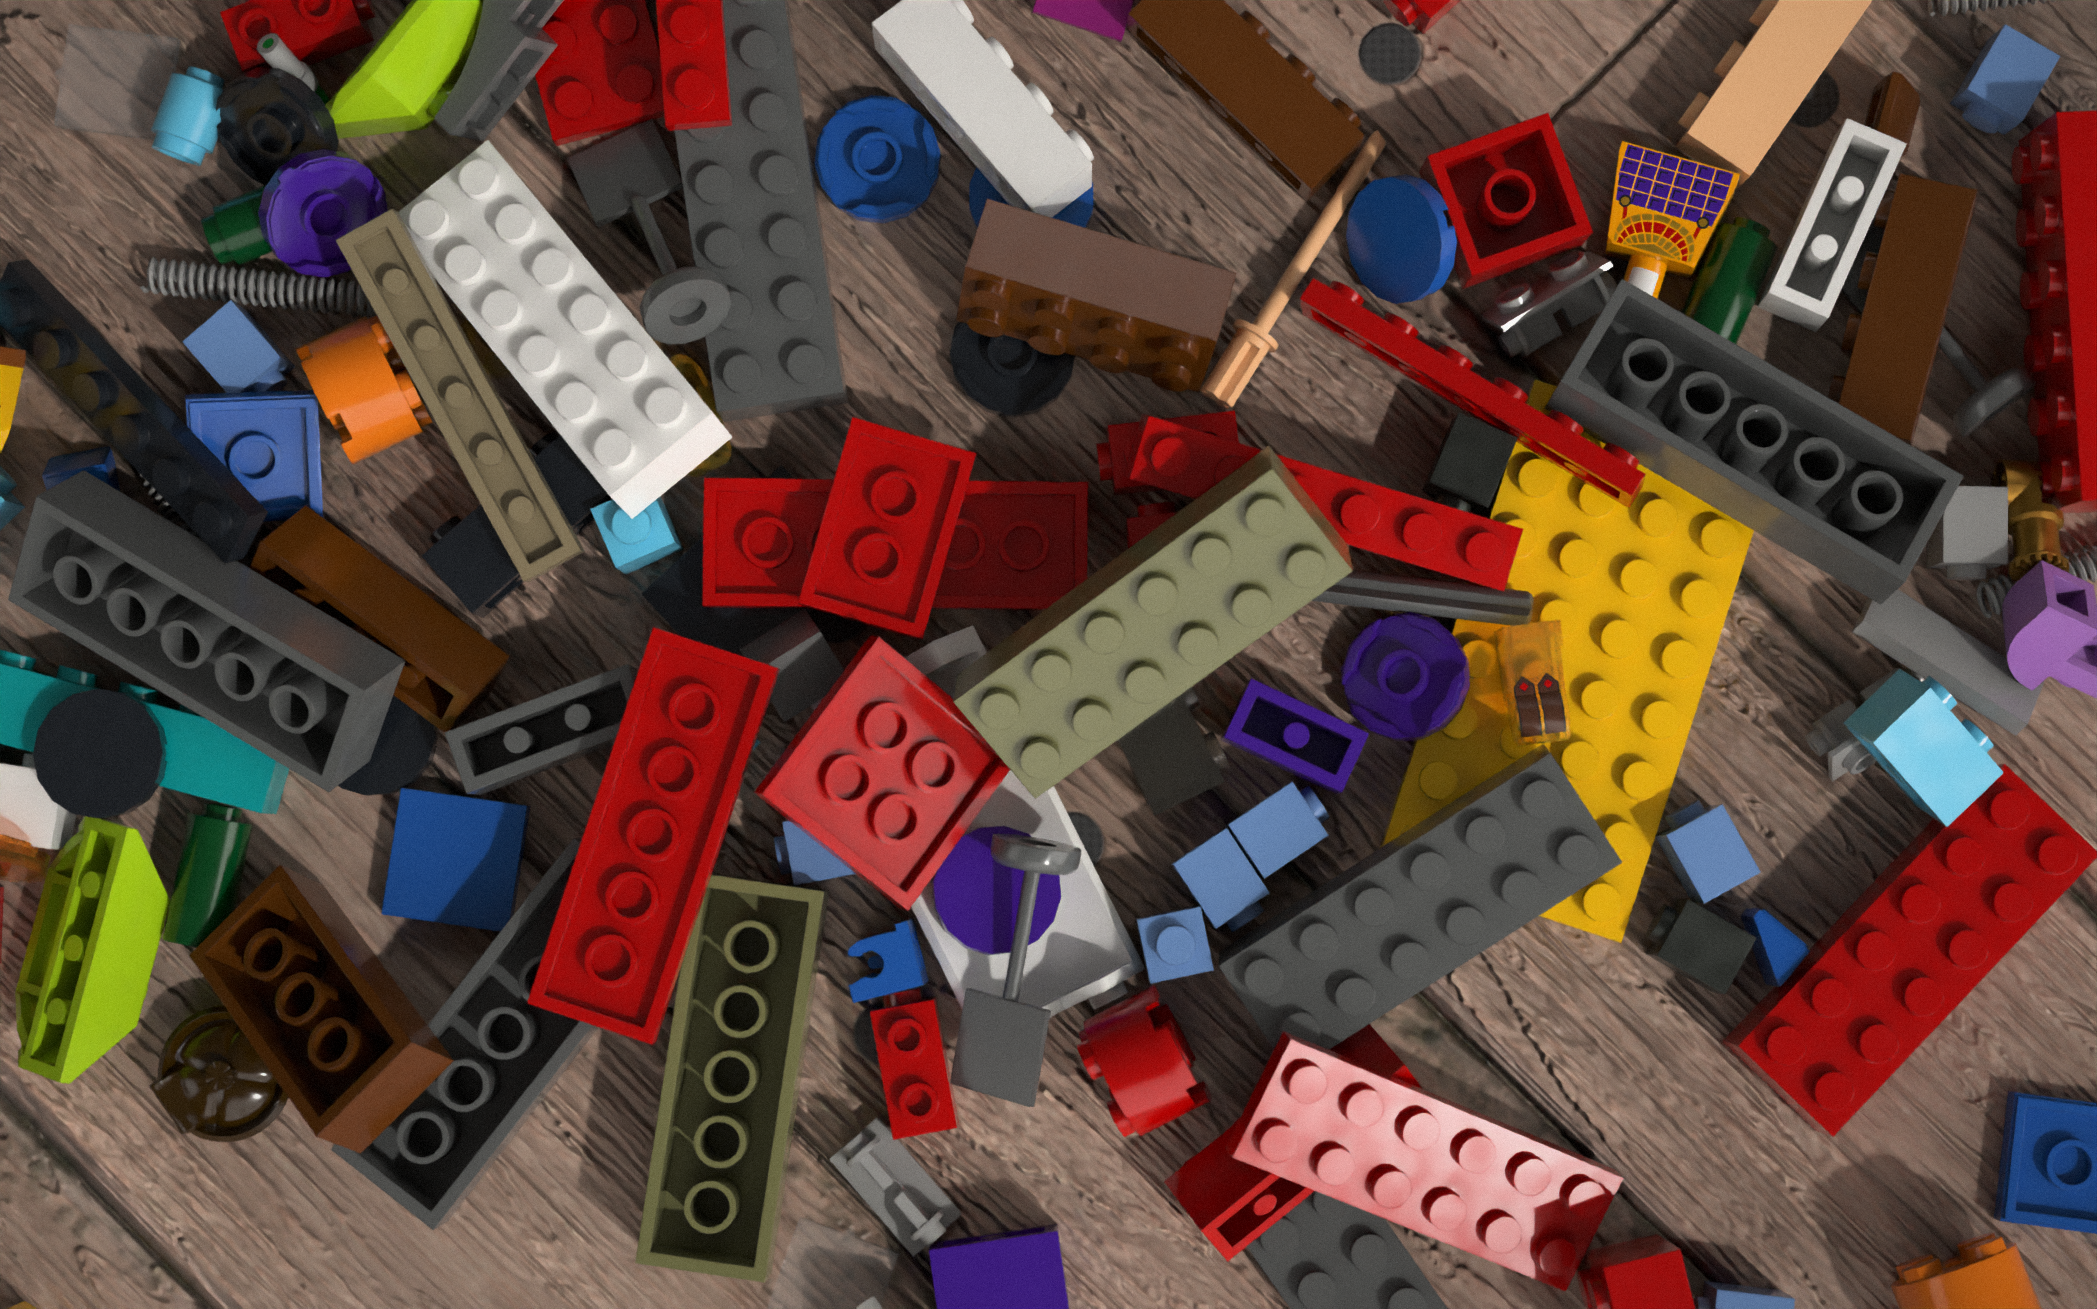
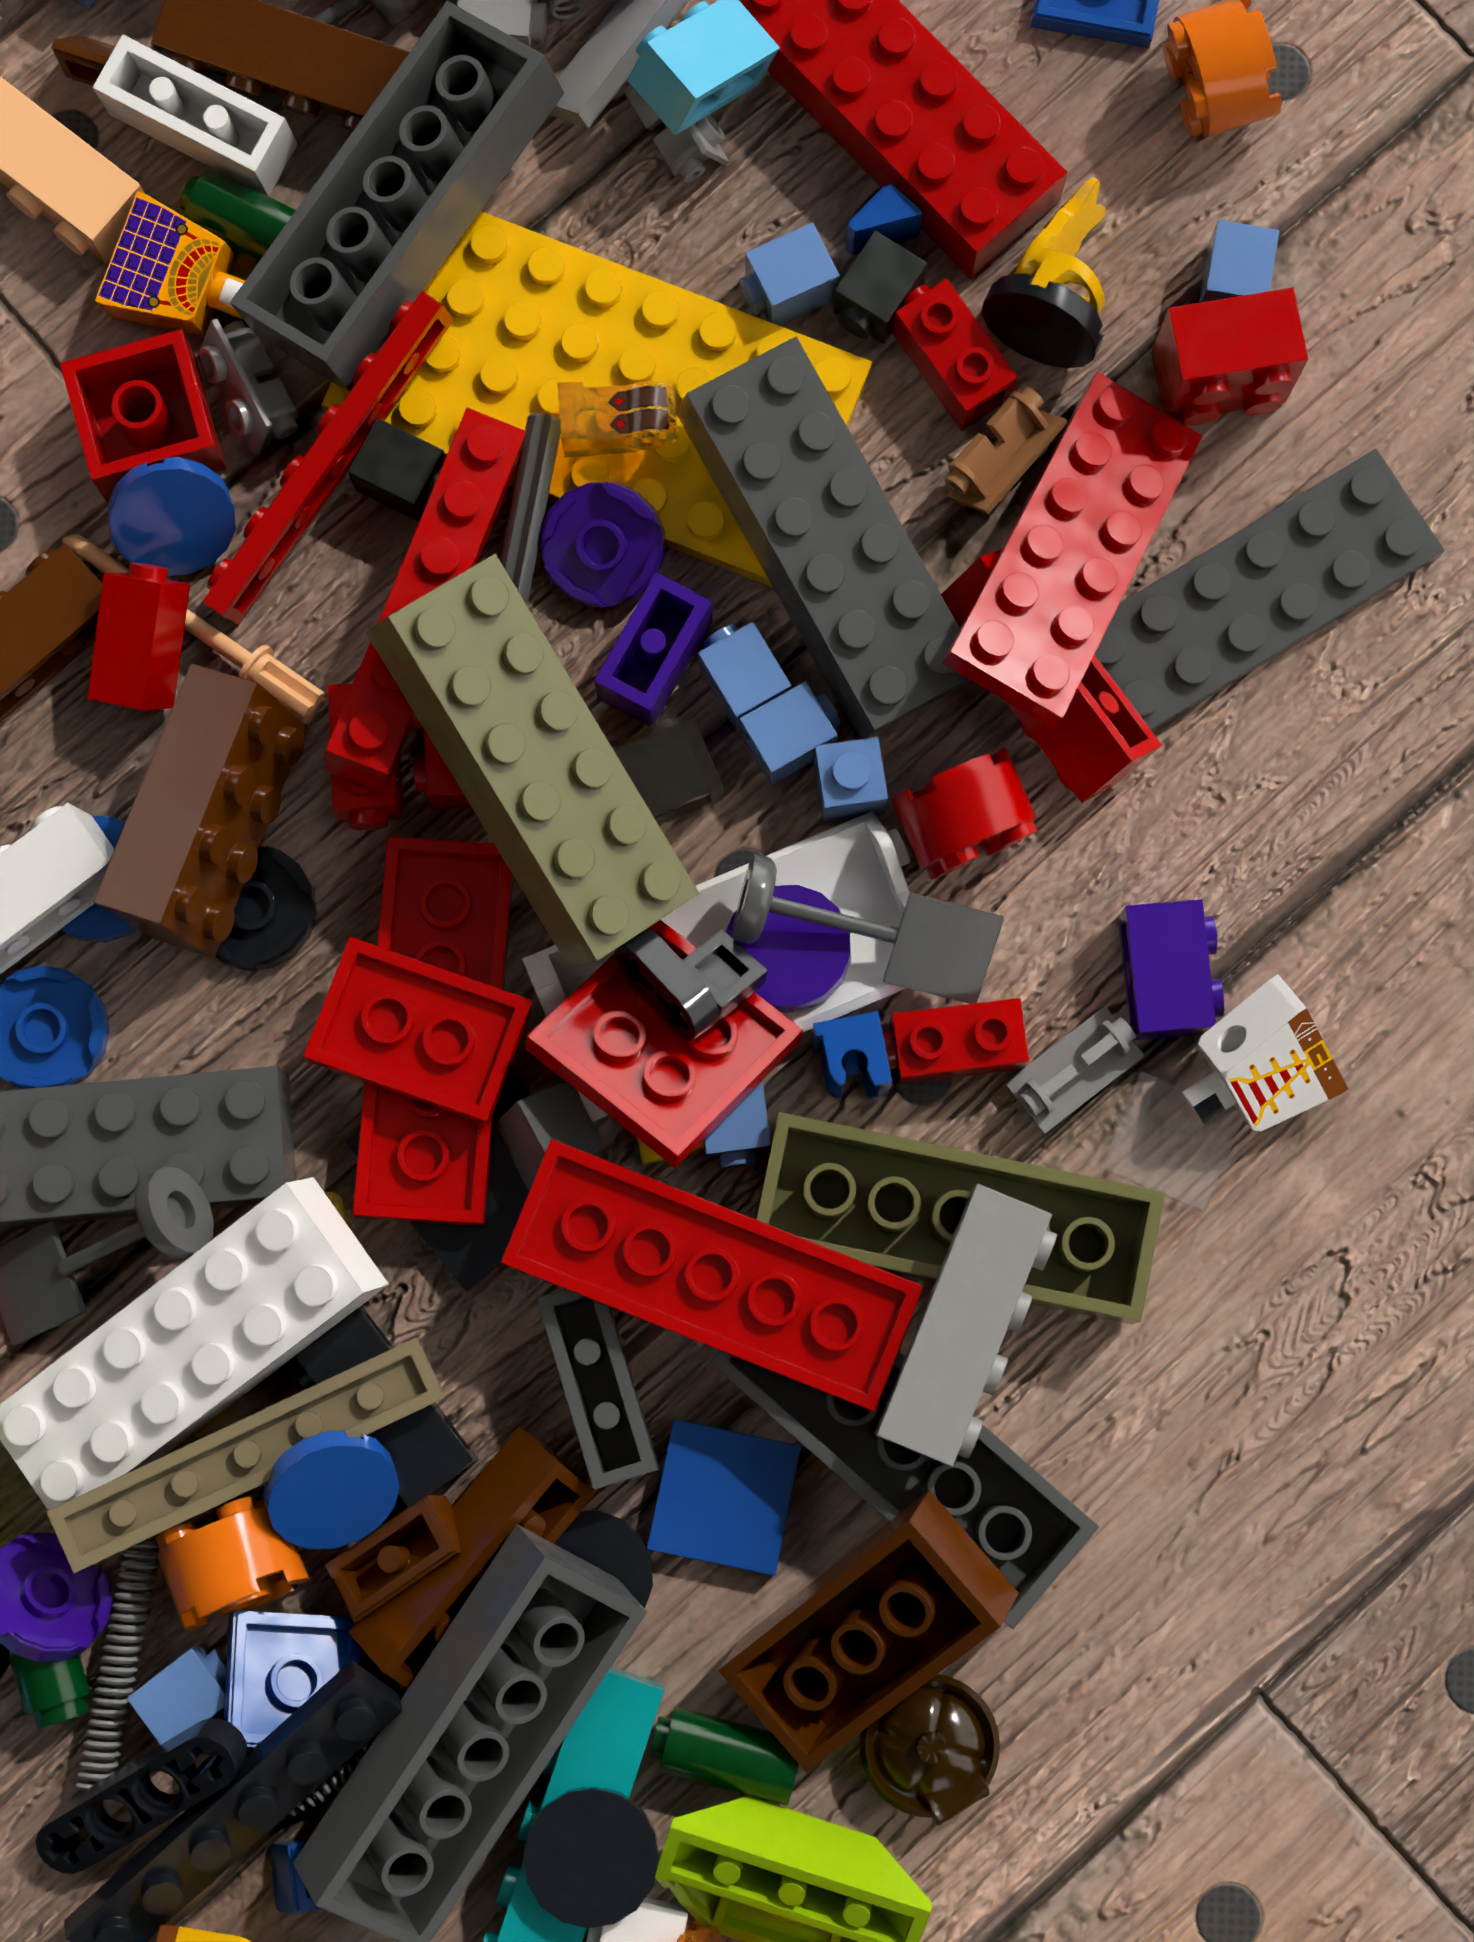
camera: 90 degrees left, 5 degrees down
(130, 330) = (138, 1794): none -> black beam
(376, 546) = (396, 1556): none -> reddish brown slope
(430, 479) = (331, 1490): none -> blue tile
(614, 1087) = (964, 1325): none -> light grey brick
(636, 540) = (410, 1290): medium azure brick -> none
(938, 774) = (667, 985): none -> black beam
(955, 825) = (726, 971): none -> plate
(1270, 217) = (139, 638): none -> red brick
(1511, 1072) = (987, 472): none -> medium nougat hinge
(1635, 1026) = (953, 353): none -> red brick
(1666, 1122) = (1043, 323): none -> black tile
(1731, 1116) = (1053, 250): none -> yellow hair

